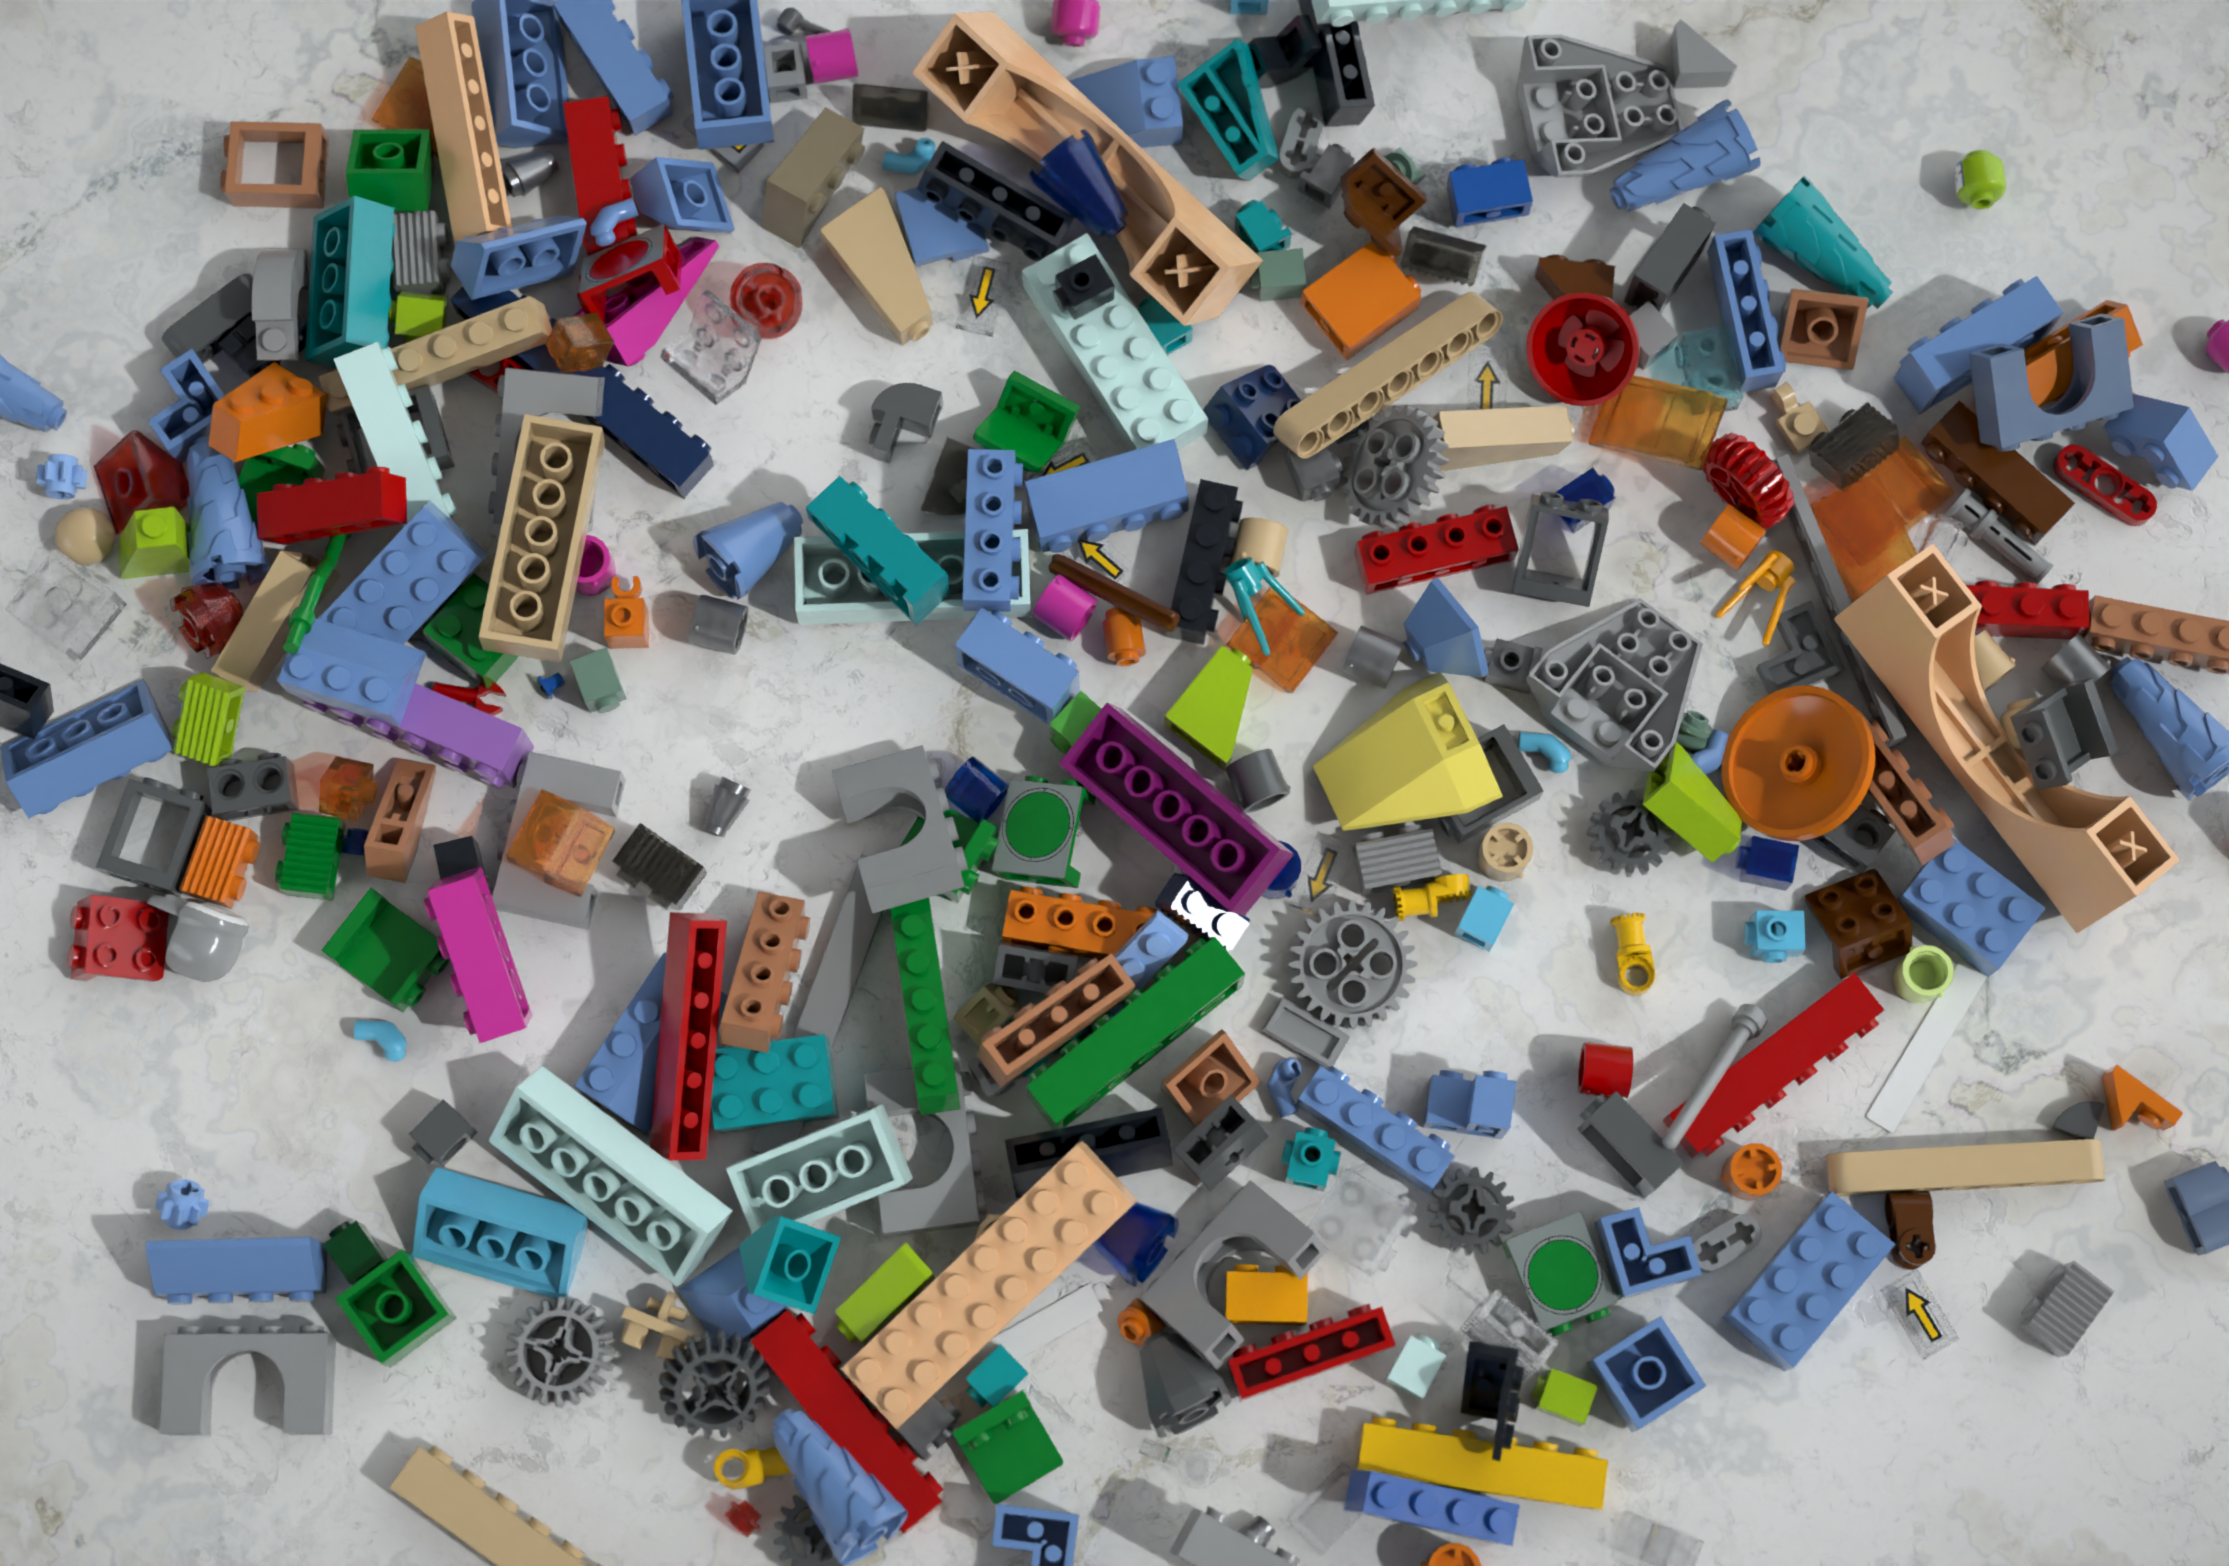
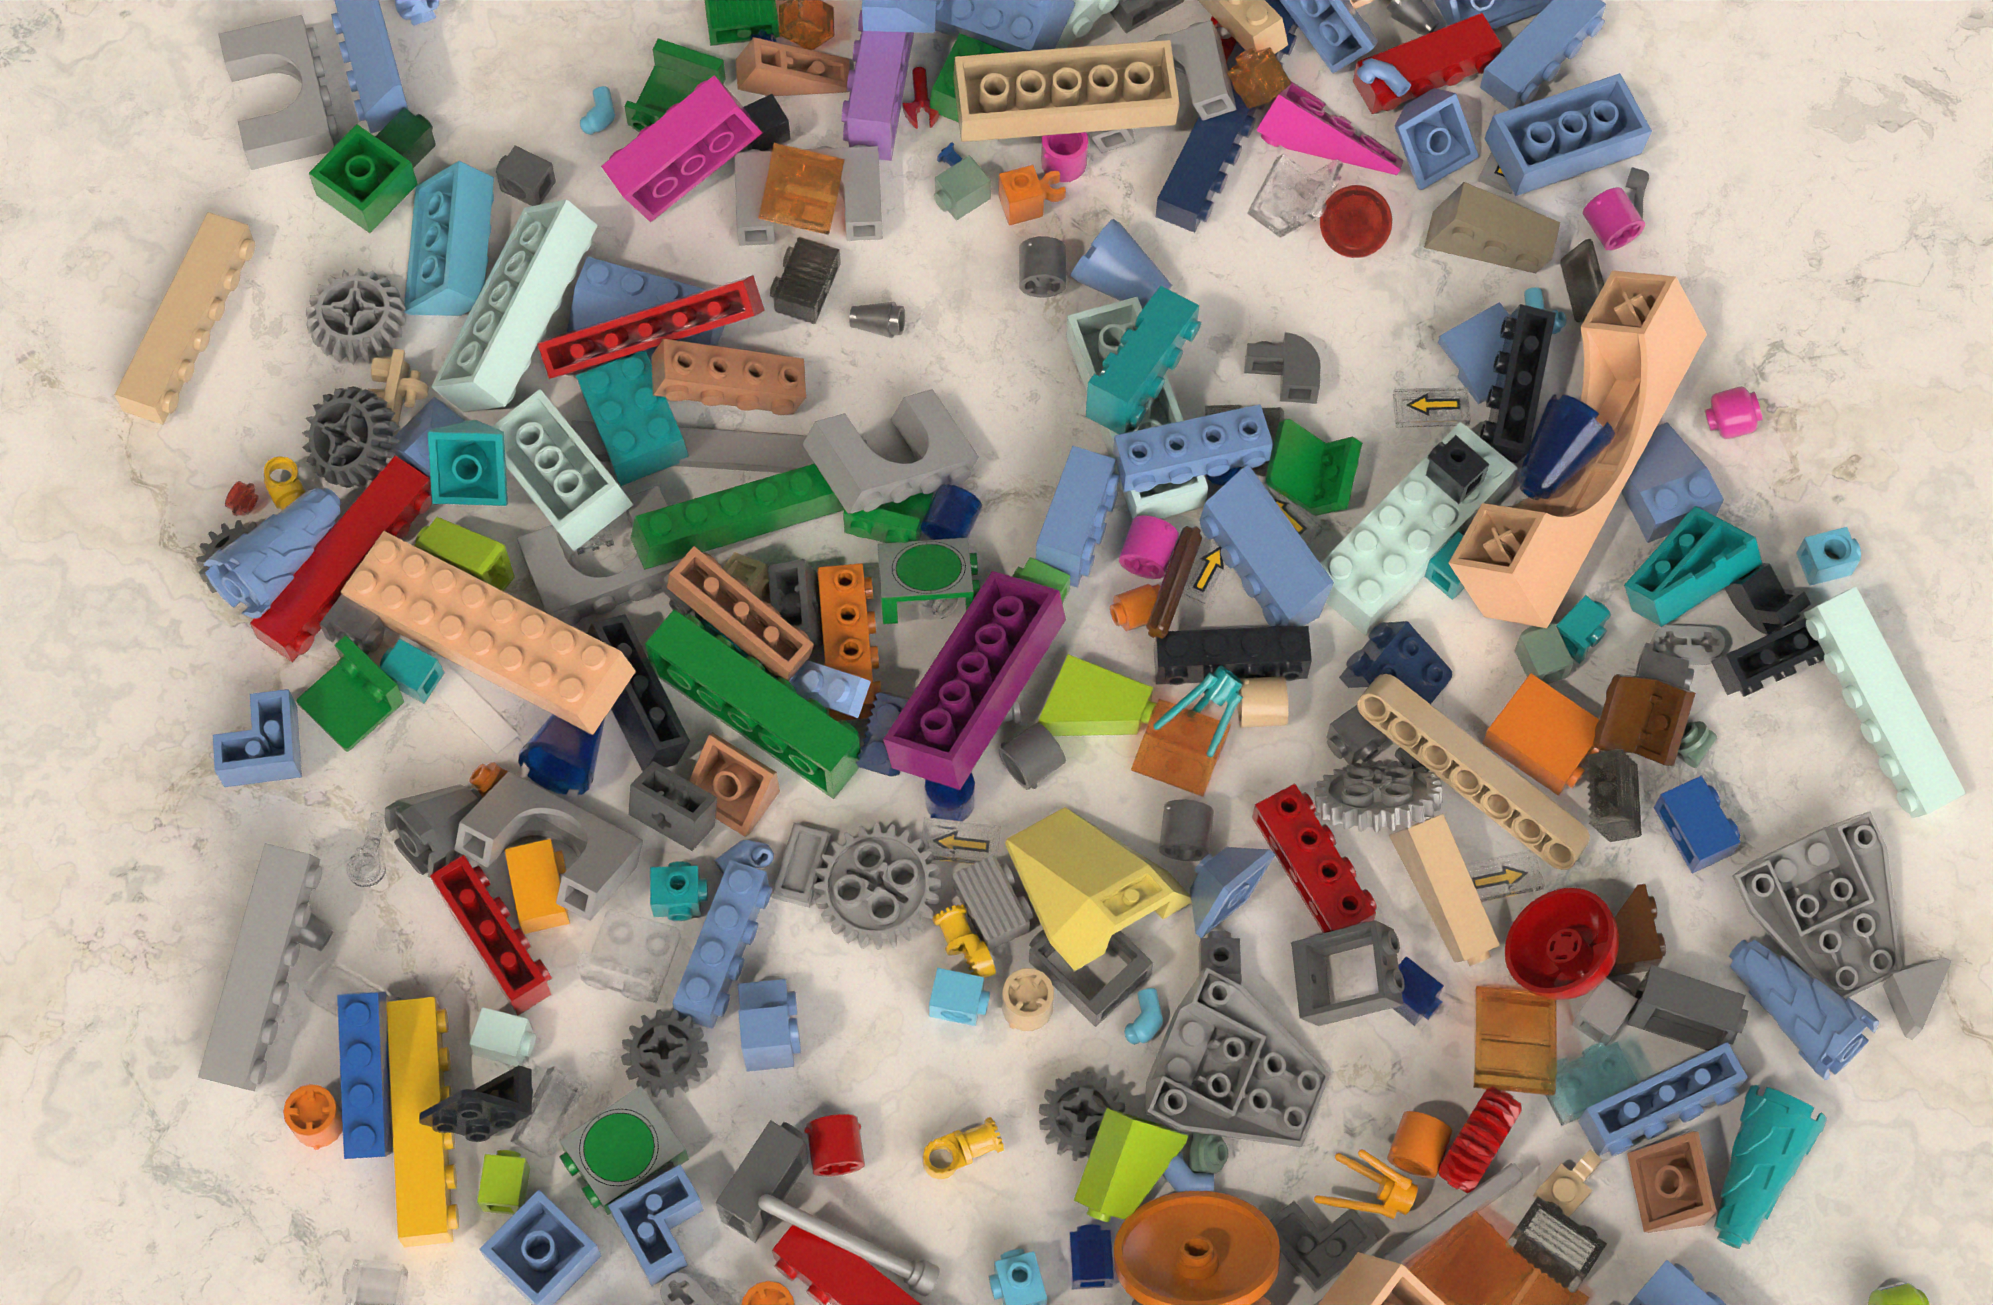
camera: 75 degrees right, 10 degrees down
(626, 260) = (1361, 116): red panel -> none
(789, 84) = (1582, 183): light grey brick -> none
(877, 261) = (1432, 304): tan slope -> none

